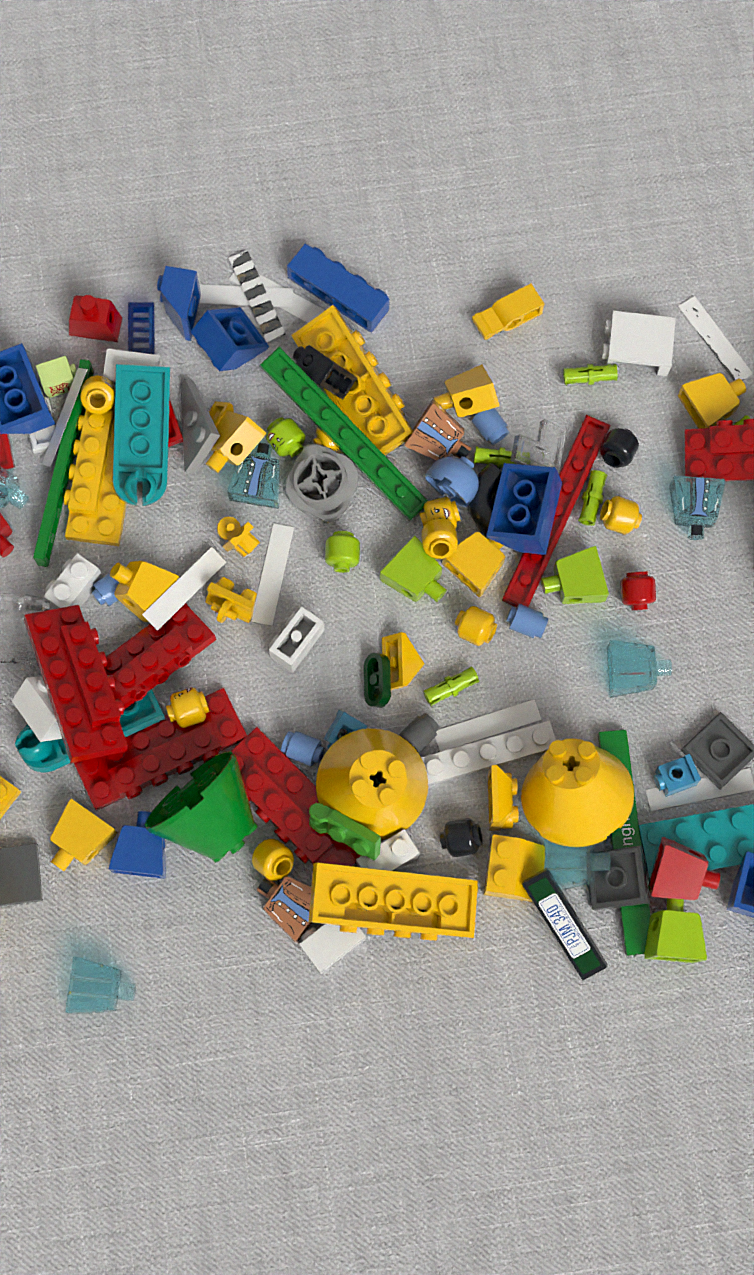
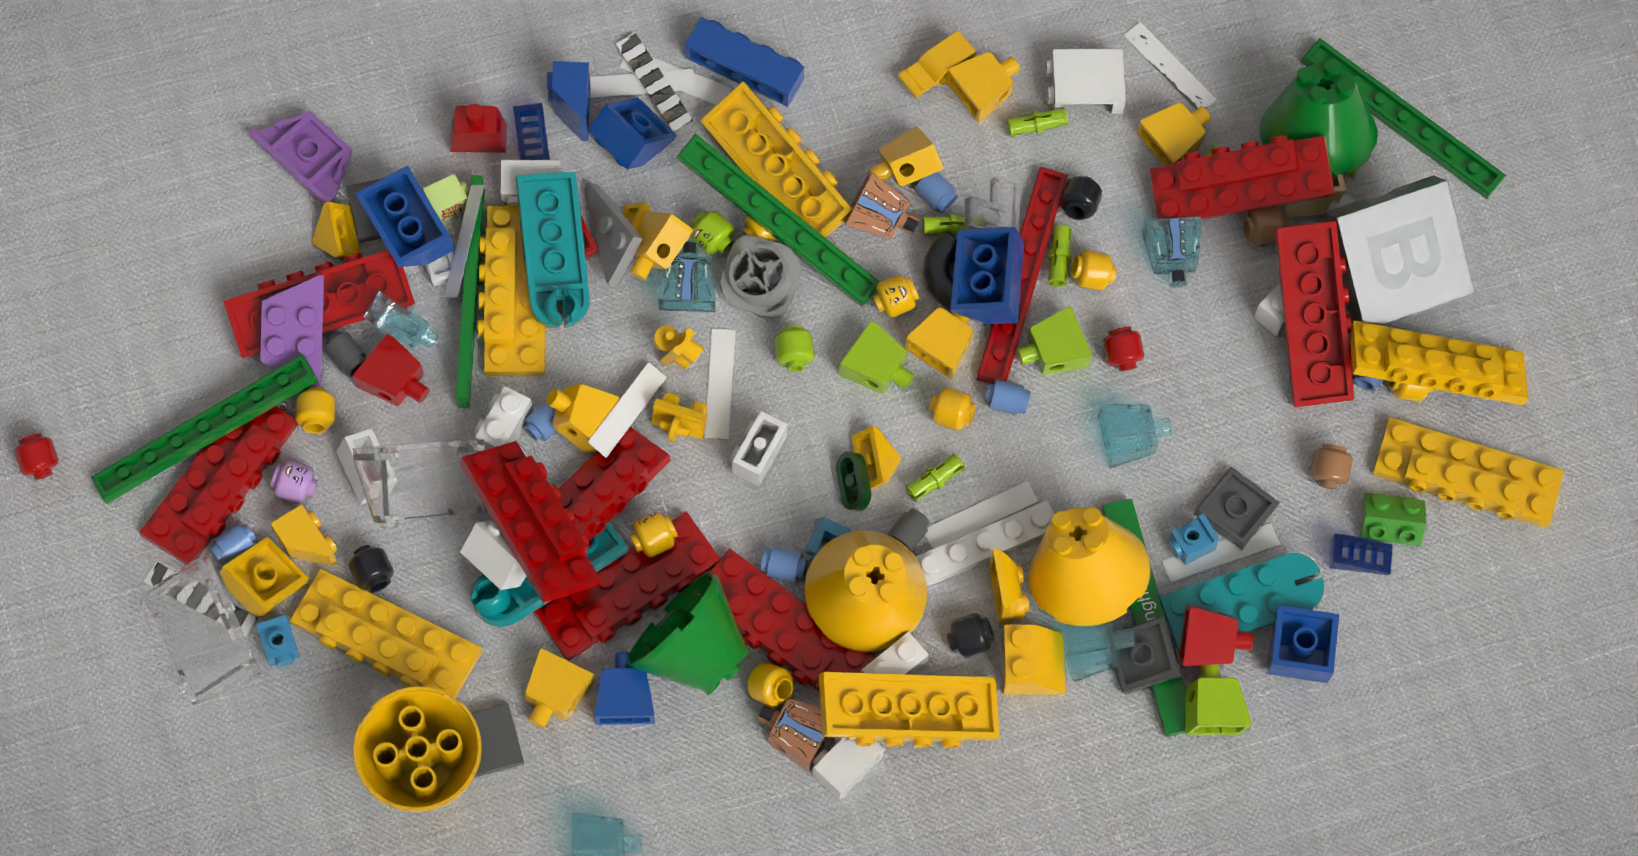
camera: 10 degrees left, 5 degrees down
(97, 394) = (499, 211): yellow head -> none
(319, 367) = (746, 154): black torso -> none
(345, 830) = (845, 639): bright green hinge -> none
(439, 538) = (899, 319): yellow head -> none
(454, 478) = (905, 253): medium blue cylinder -> none
(546, 333) = (982, 83): none -> yellow torso
(565, 924) = (1095, 709): tile -> none

